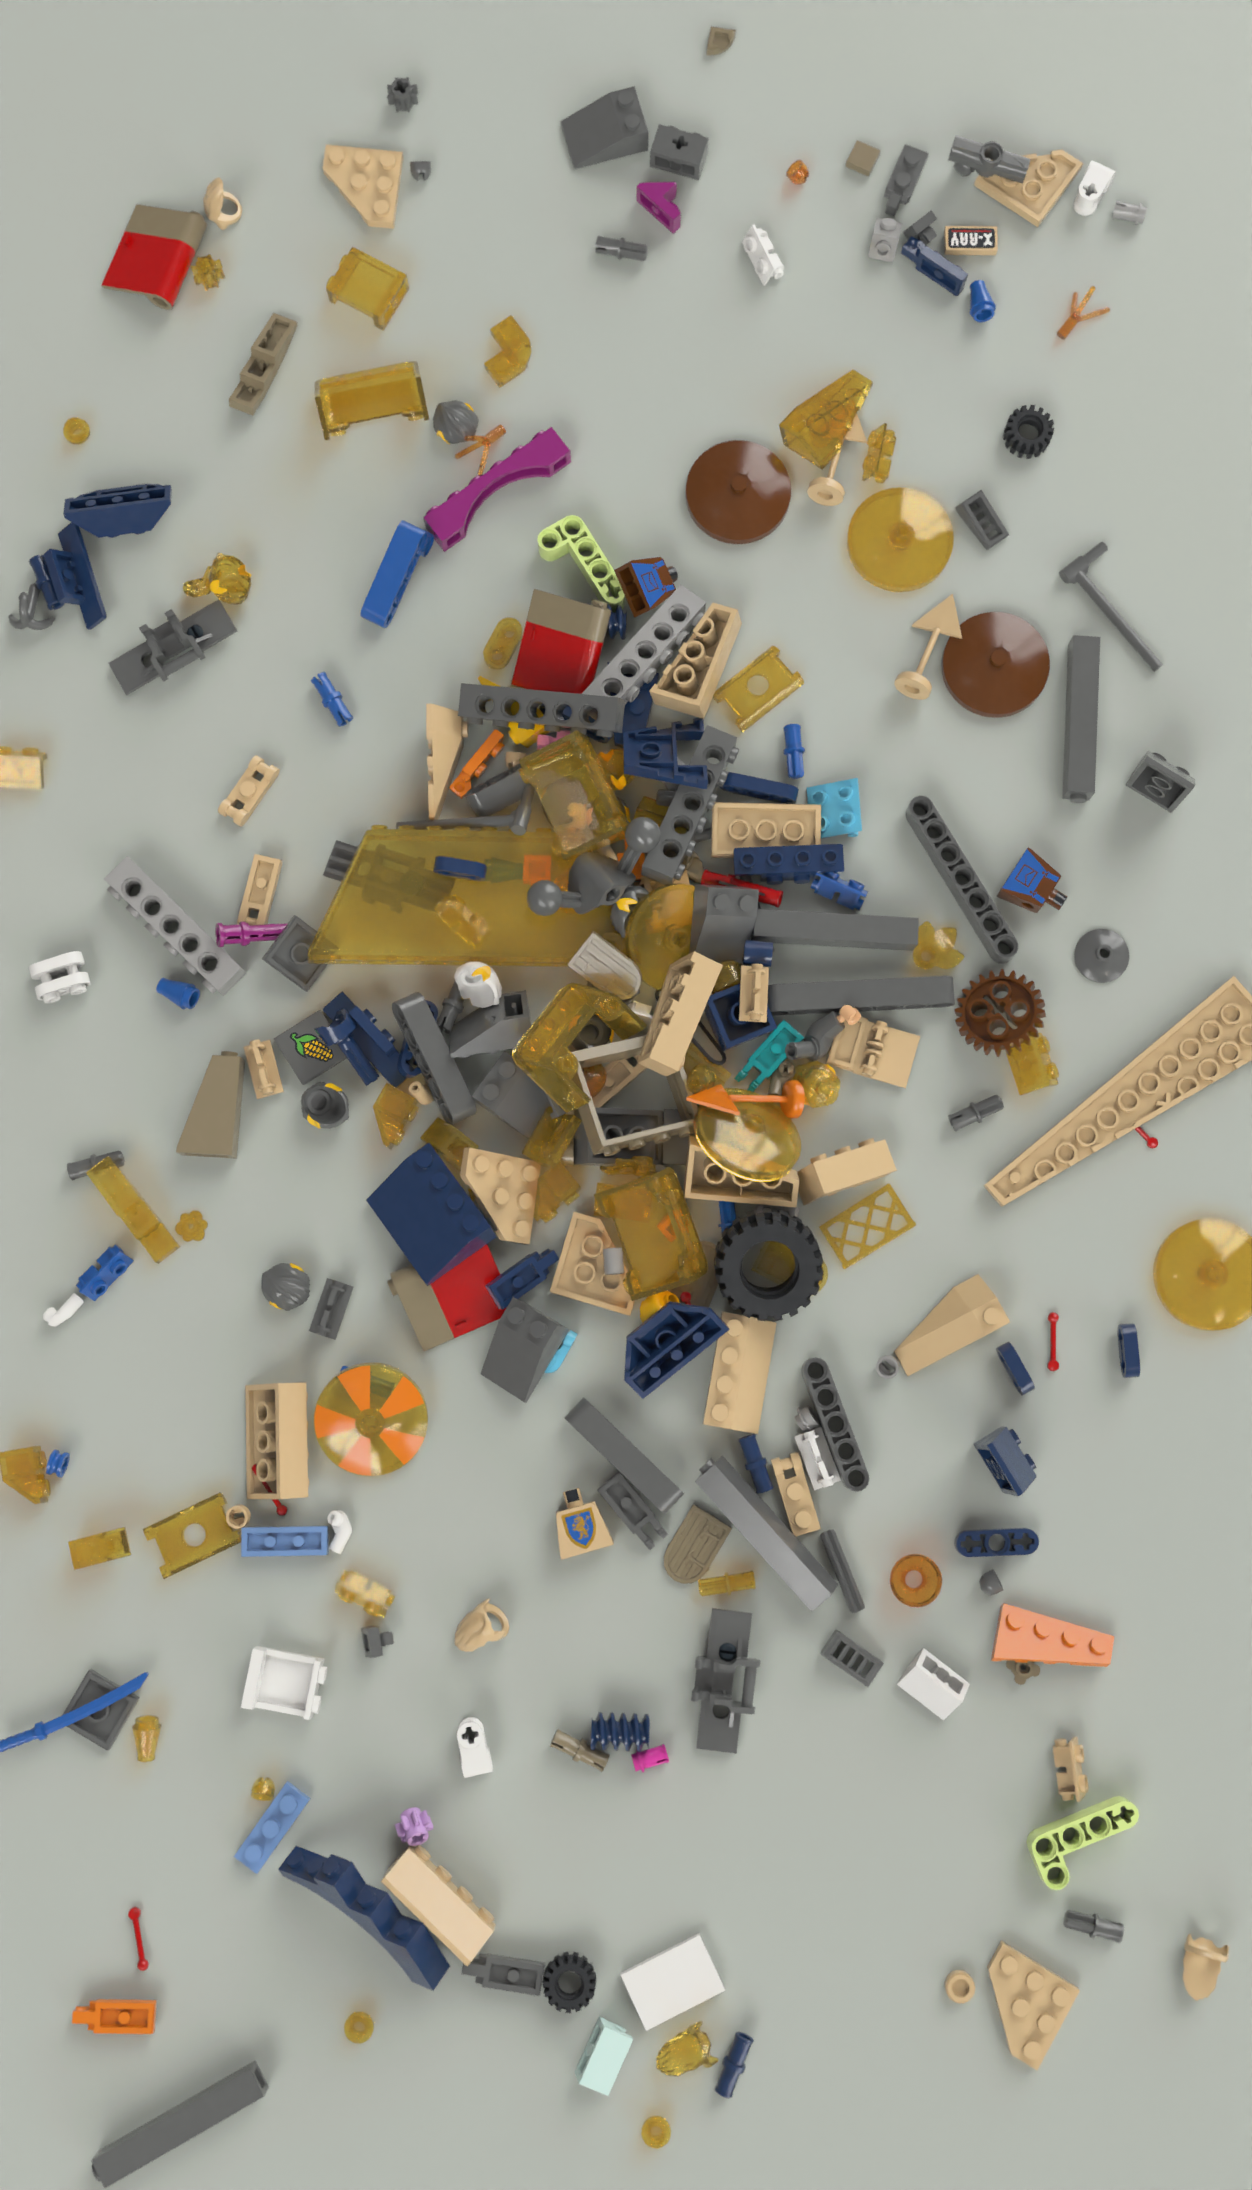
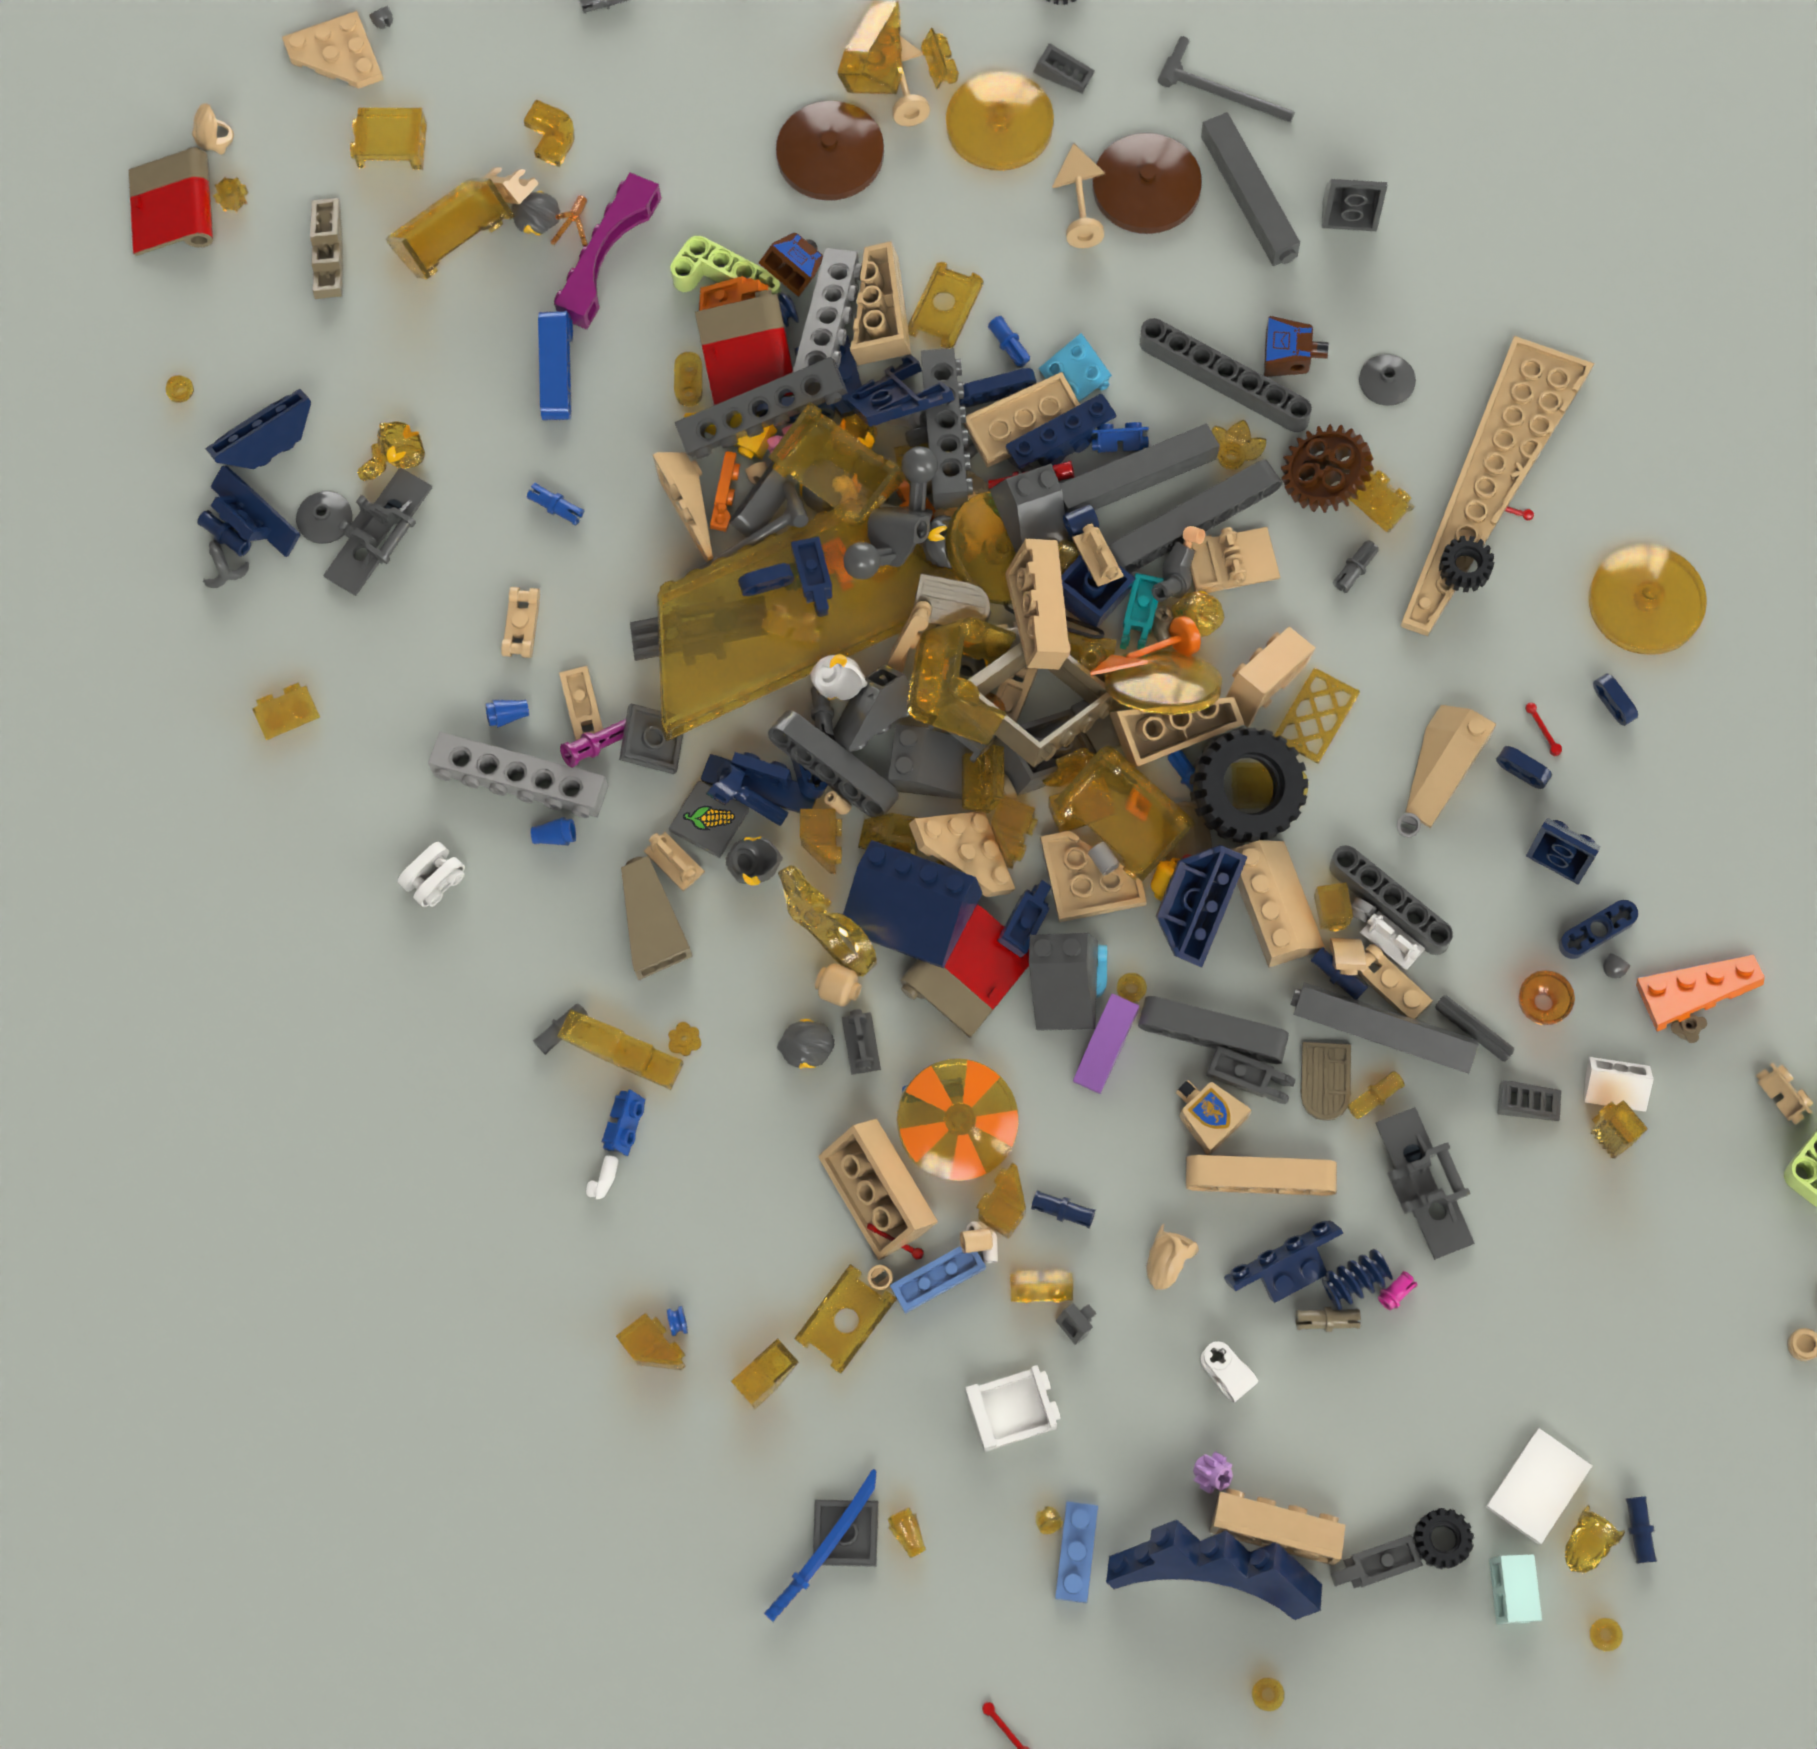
camera: 25 degrees left, 10 degrees down
(149, 612) = (323, 528): none -> dark grey dish
(194, 864) = (505, 711): none -> blue cone
(328, 1531) = (976, 1240): none -> tan hinge
(338, 1249) = (838, 984): none -> tan head
(349, 1177) = (809, 907): none -> clear yellow animal
(372, 1511) = (1005, 1205): none -> clear yellow slope
(416, 1540) = (1063, 1209): none -> dark blue pin
(443, 390) = (511, 187): none -> tan hinge
(503, 882) = (813, 573): none -> dark blue hinge
(528, 1419) = (1106, 1043): none -> medium lavender slope
(557, 979) = (909, 635): none -> tan plate
(568, 1381) = (1135, 979): none -> clear yellow plate
(573, 1687) = (1288, 1266): none -> dark blue bracket
(575, 585) = (729, 292): none -> orange hinge
(593, 1600) = (1261, 1175): none -> tan beam
(769, 1454) = (1348, 955): none -> tan slope
(783, 1404) = (1333, 906): none -> clear yellow brick
(908, 1727) = (1617, 1128): none -> clear yellow brick
(1085, 1159) = (1466, 579): none -> black tyre

